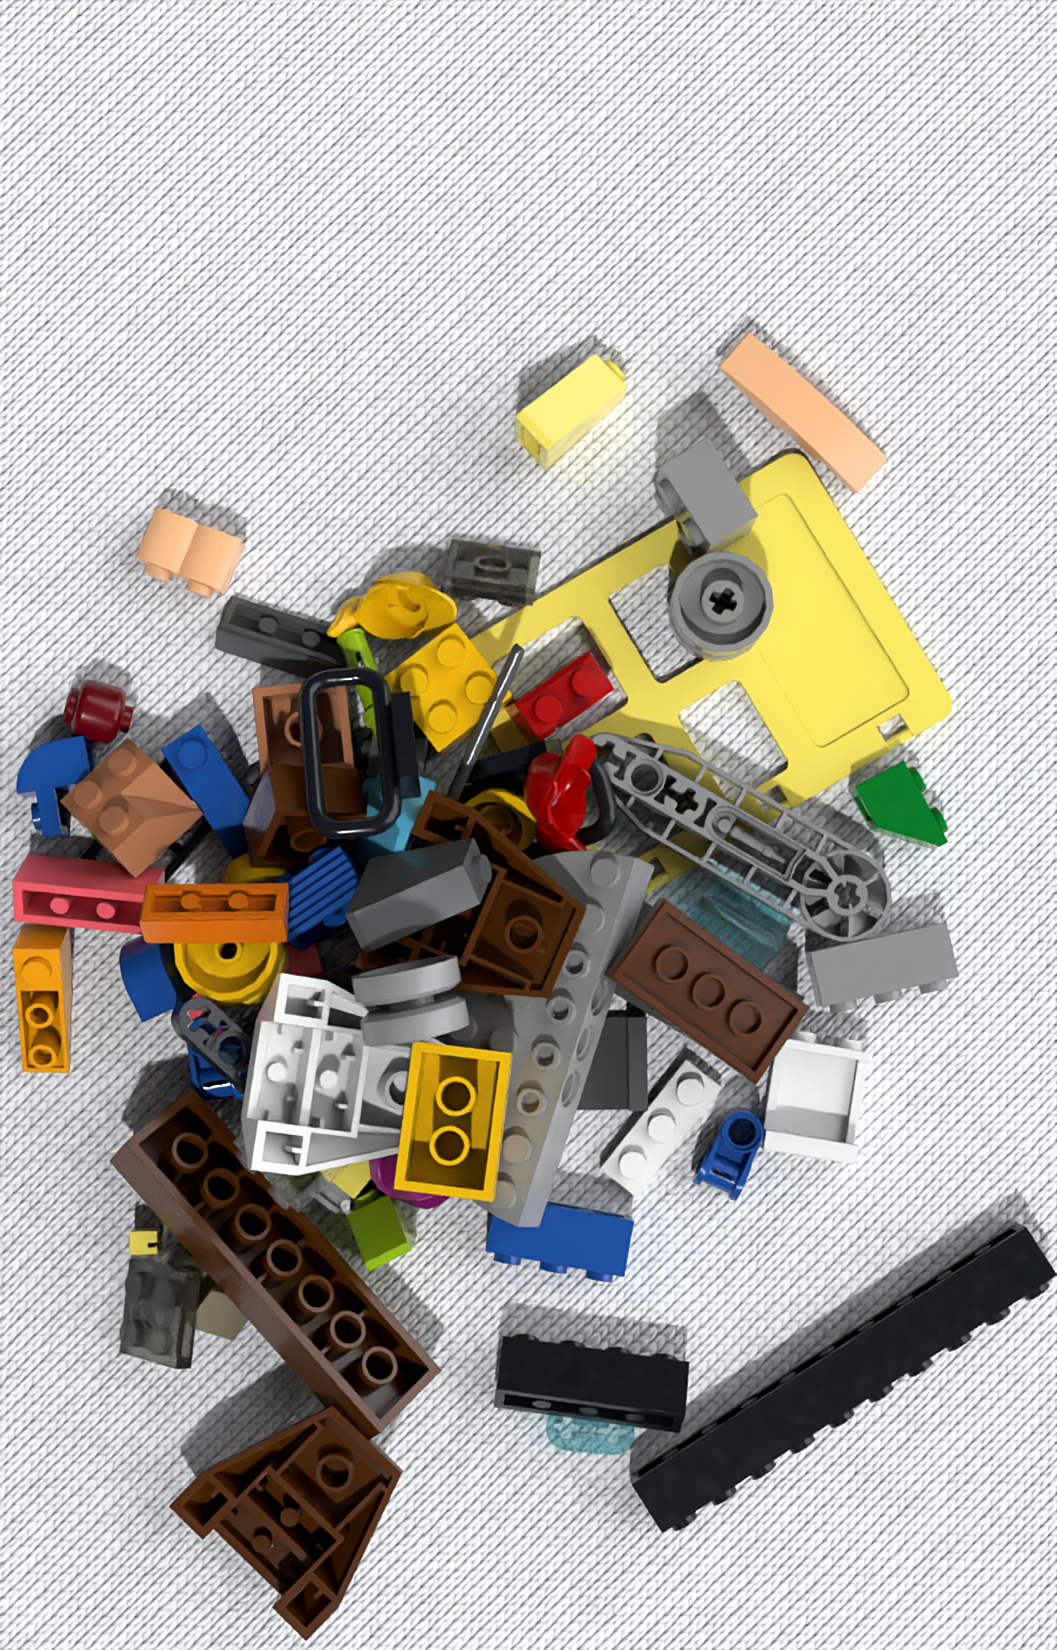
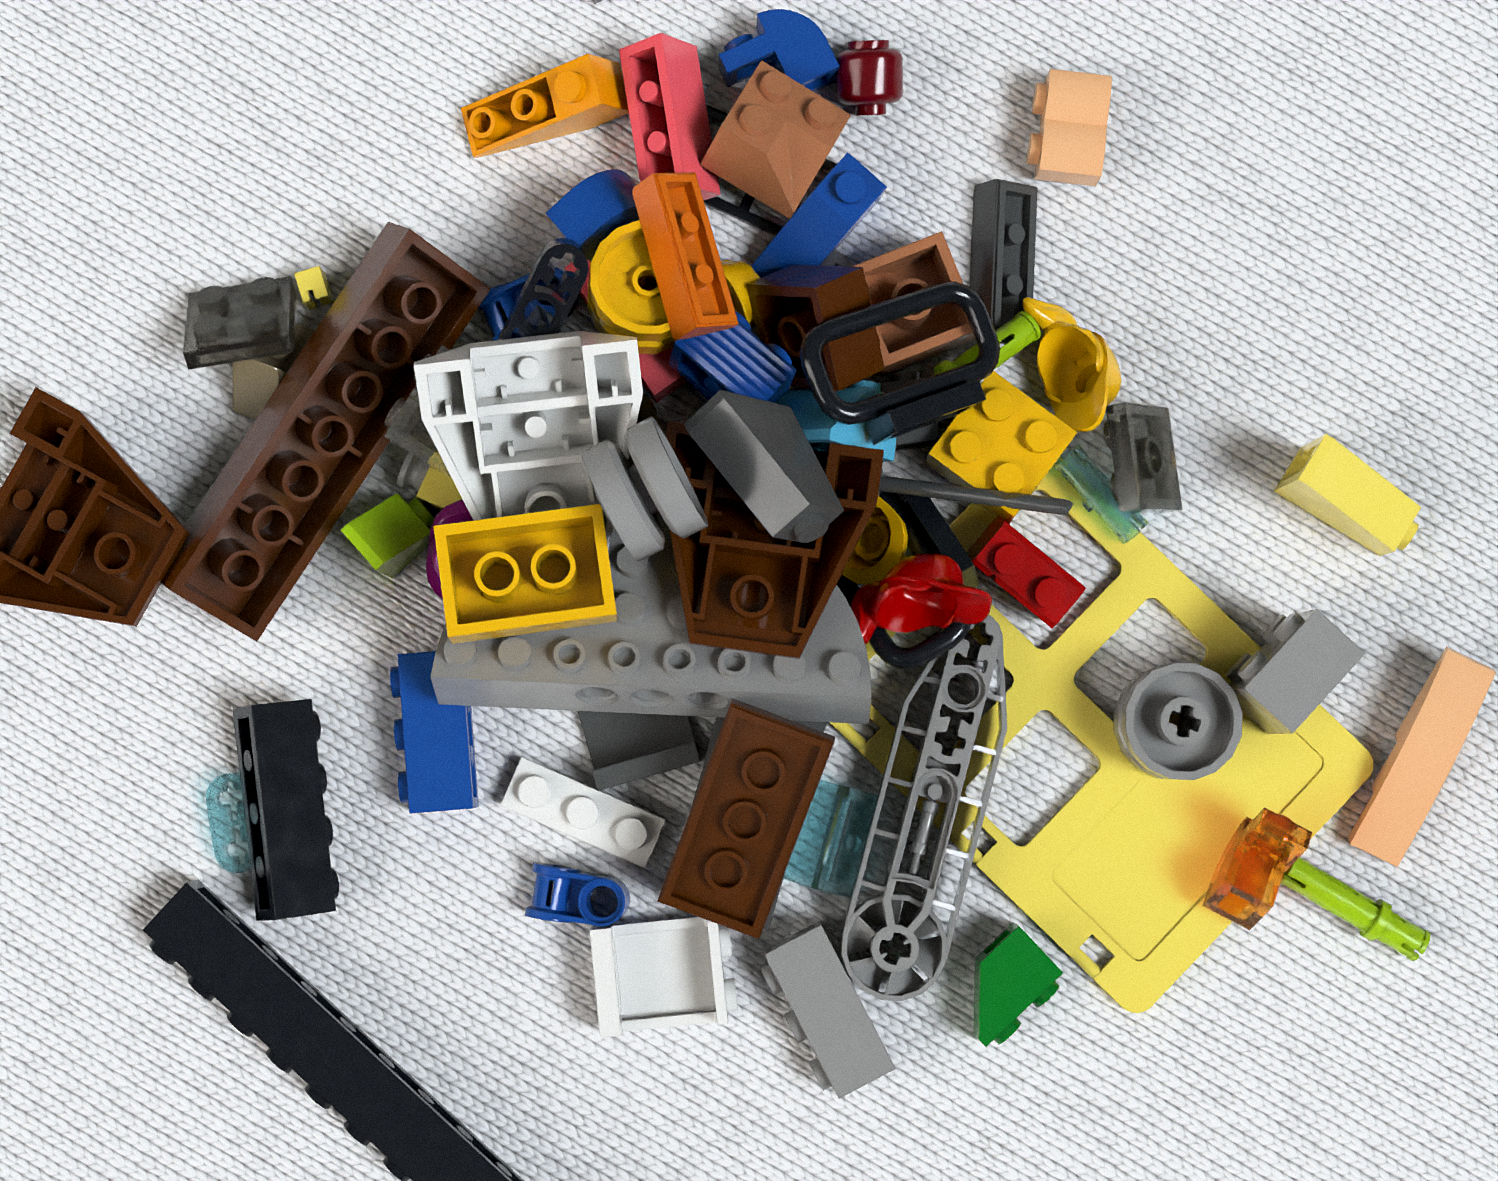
camera: 75 degrees right, 0 degrees up
(509, 619) = (1097, 493): none -> clear light blue pin
(857, 578) = (1253, 867): none -> clear orange brick
(923, 492) = (1370, 916): none -> lime pin

